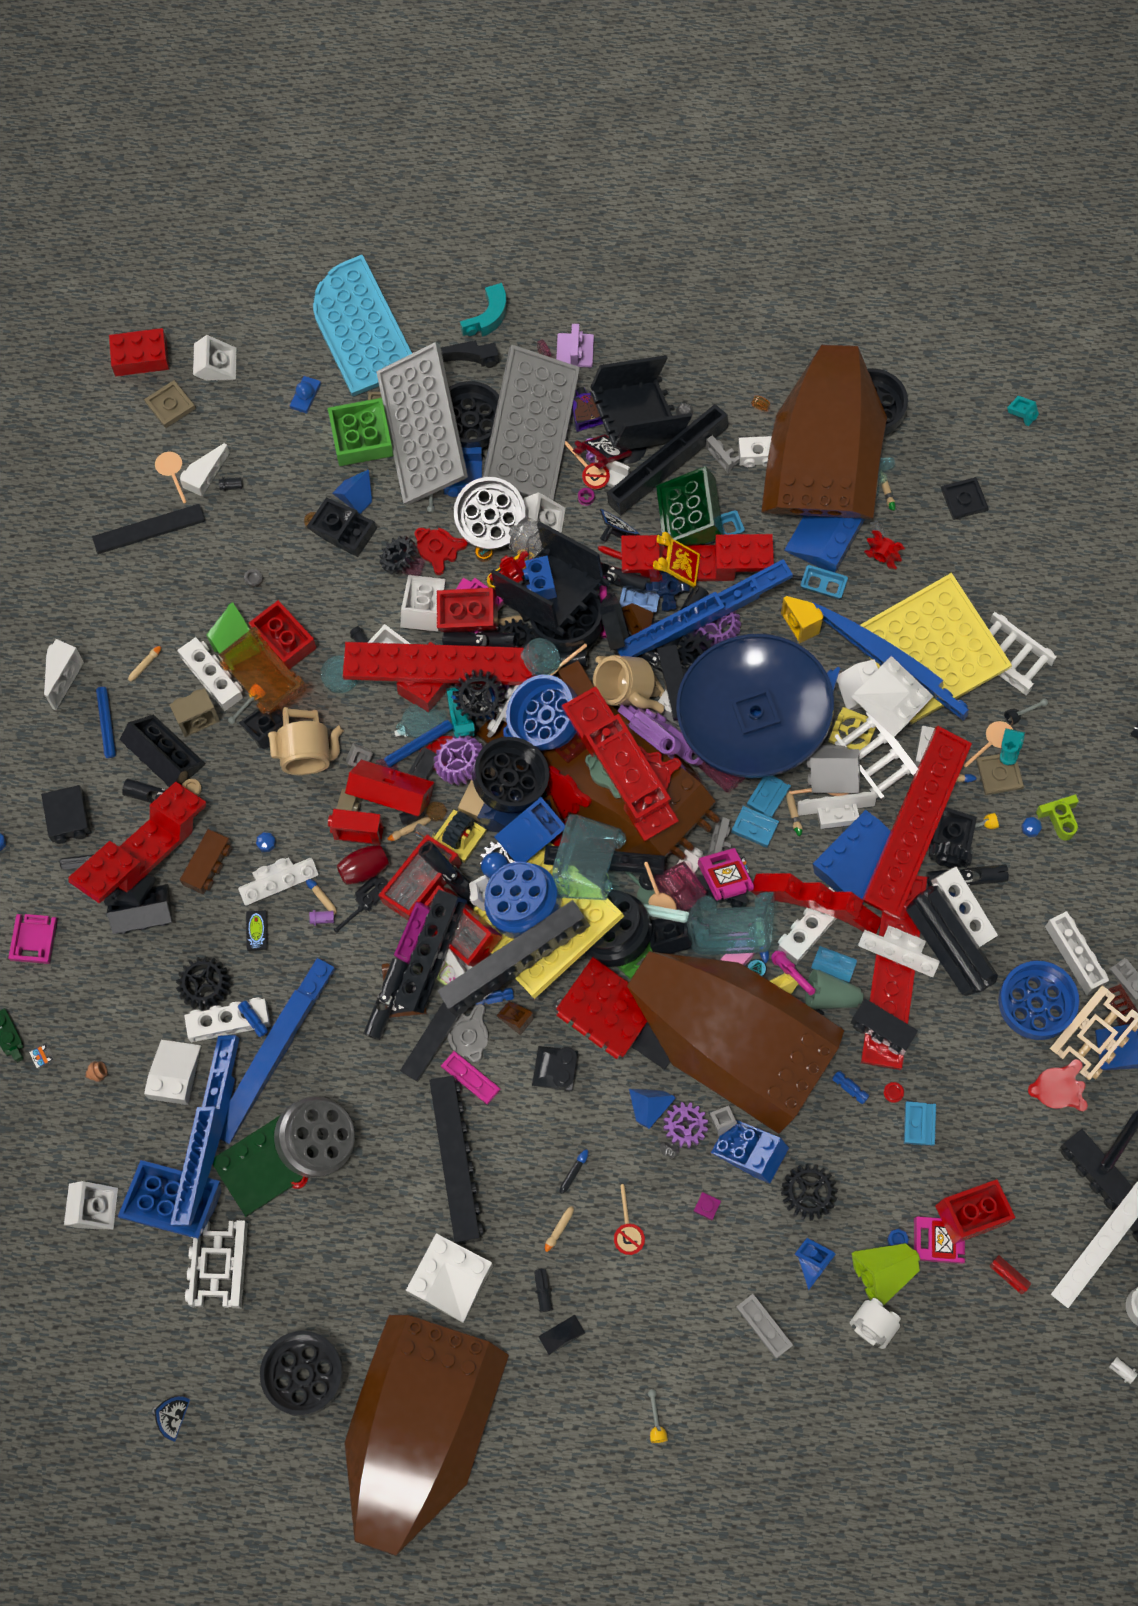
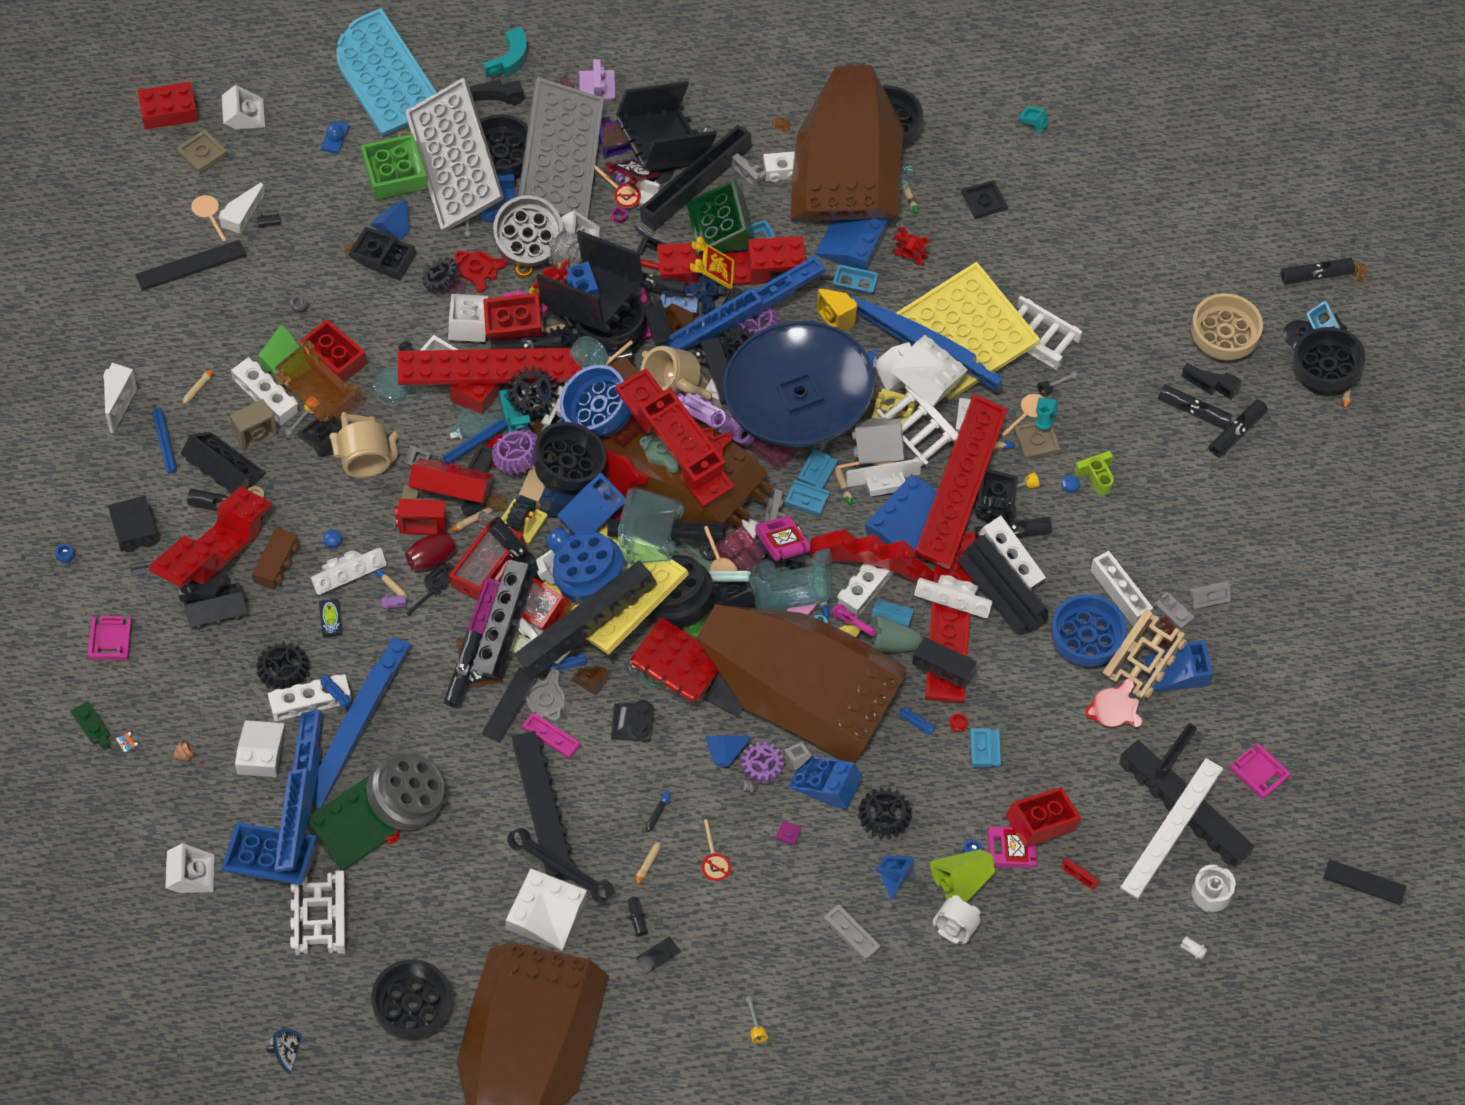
camera: 10 degrees left, 10 degrees down
(467, 1232) = (560, 865): none -> black piece

